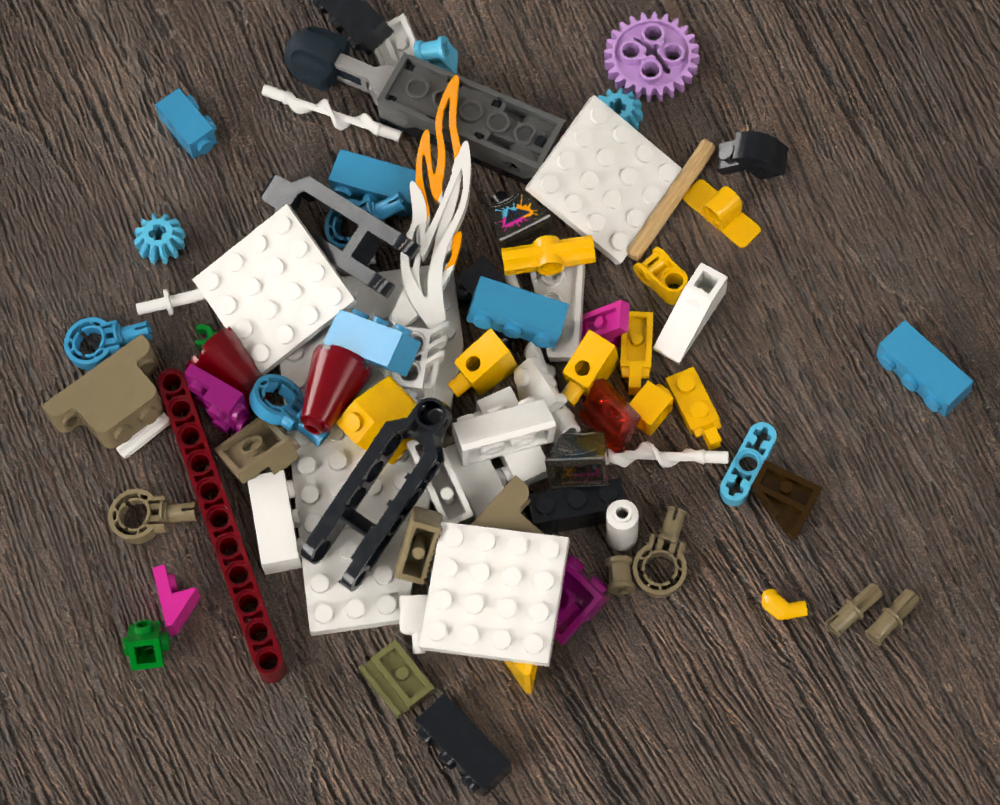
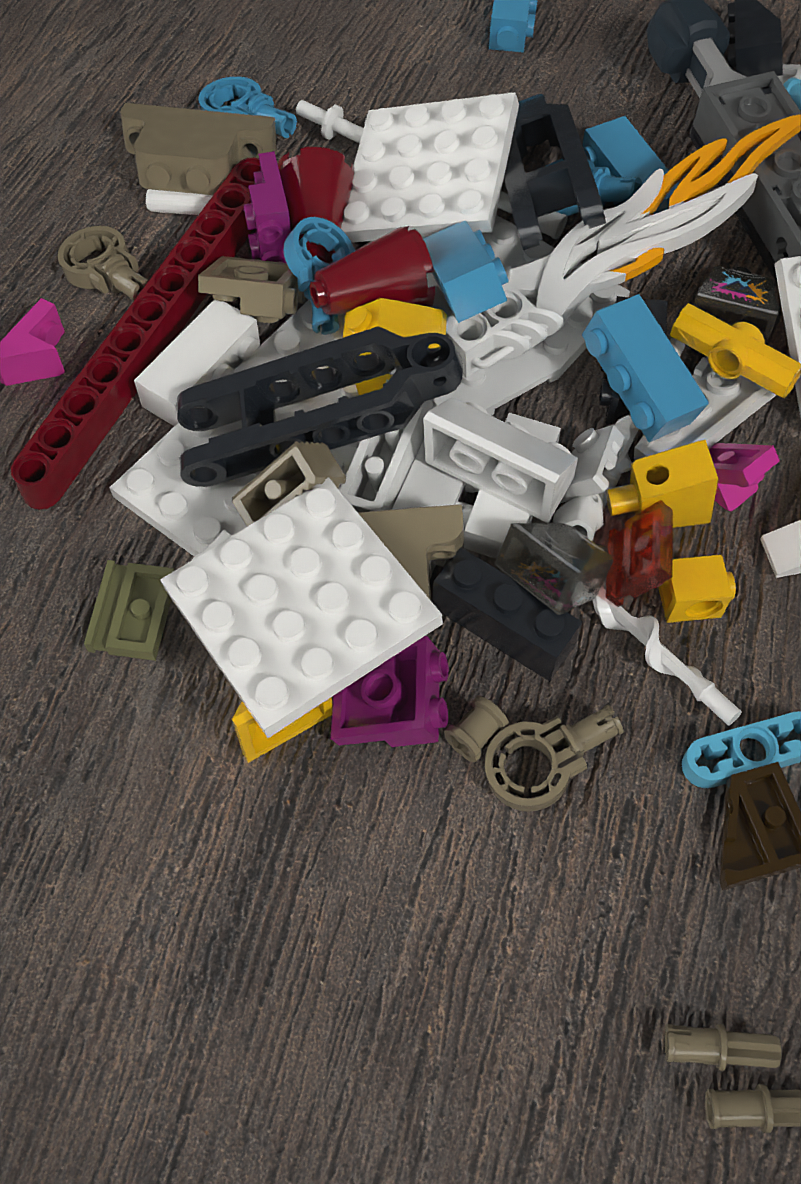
camera: 40 degrees right, 5 degrees down
(155, 249) = (384, 72): medium azure gear -> none
(338, 119) = (651, 106): white piece -> none
(462, 746) = (108, 743): black brick -> none
(482, 365) = (557, 392): yellow torso -> none
(622, 525) = (531, 673): white brick -> none
(637, 350) = (743, 519): yellow hinge -> none
(695, 406) = (751, 635): yellow hinge -> none
(780, 608) = (627, 952): yellow arm -> none

